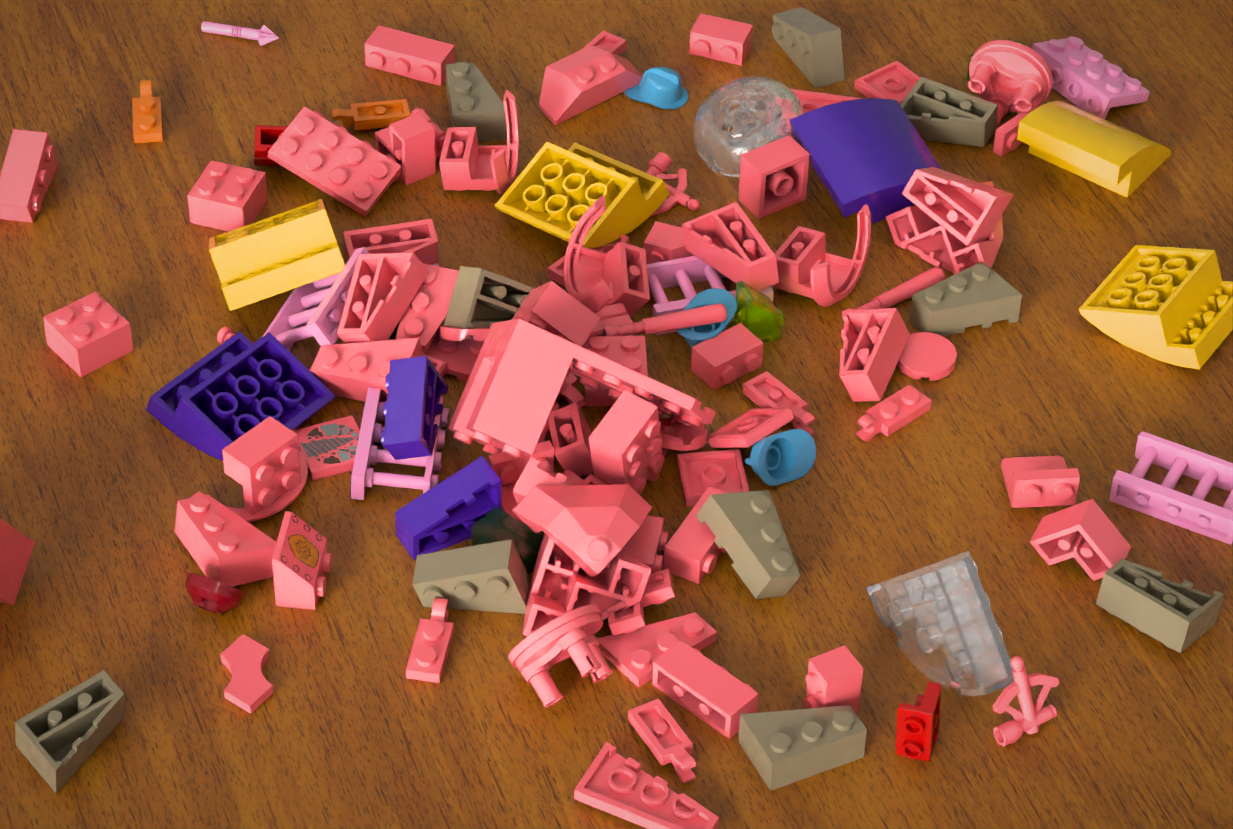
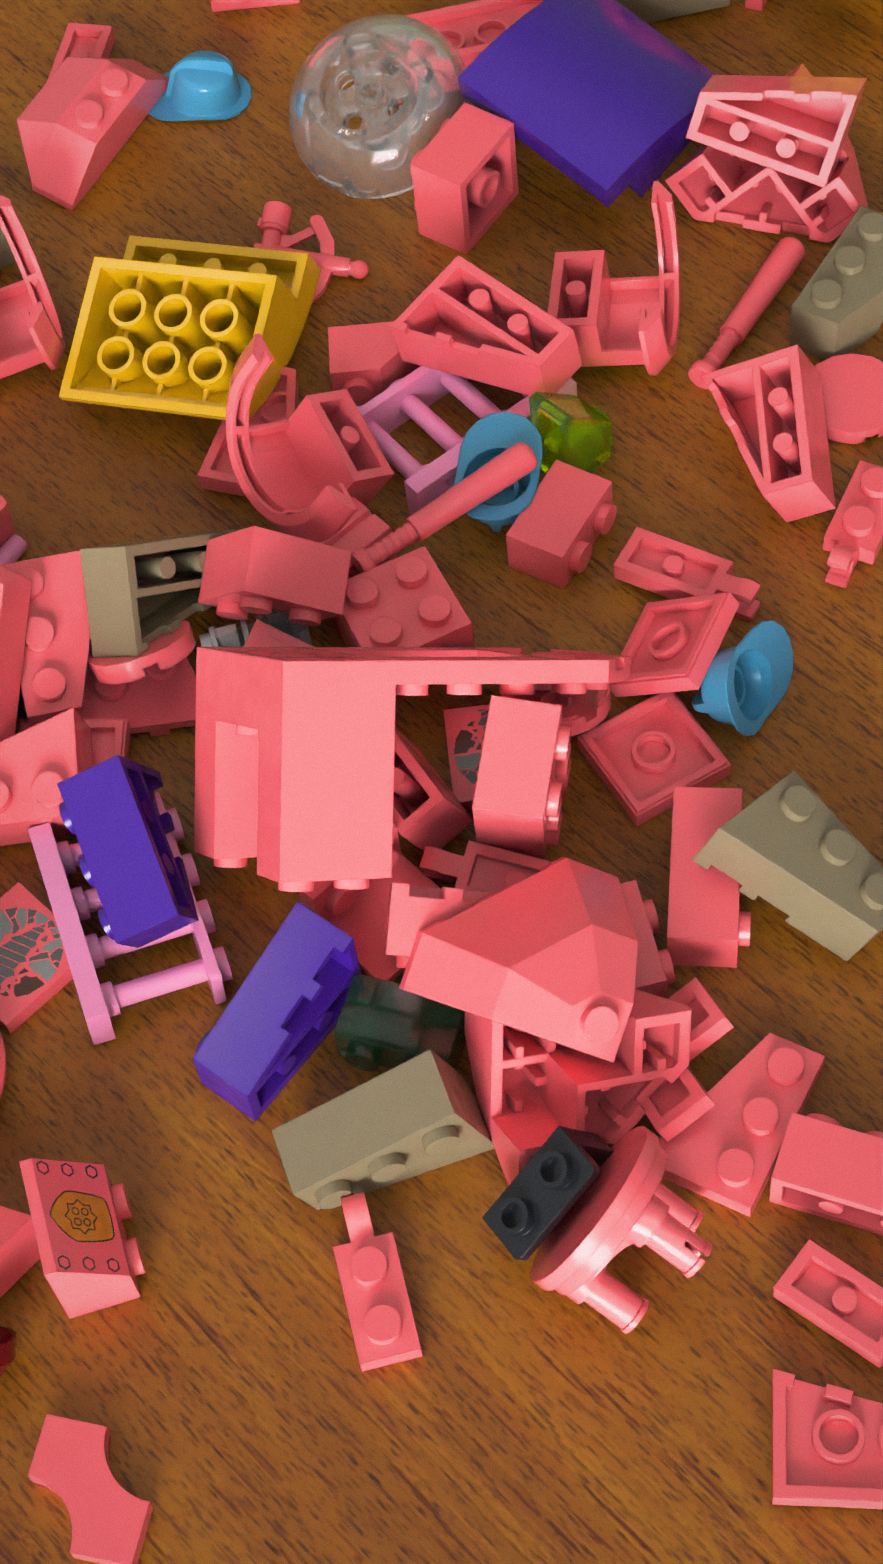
camera: 15 degrees left, 15 degrees up
(532, 618) = (546, 1189): none -> black bracket

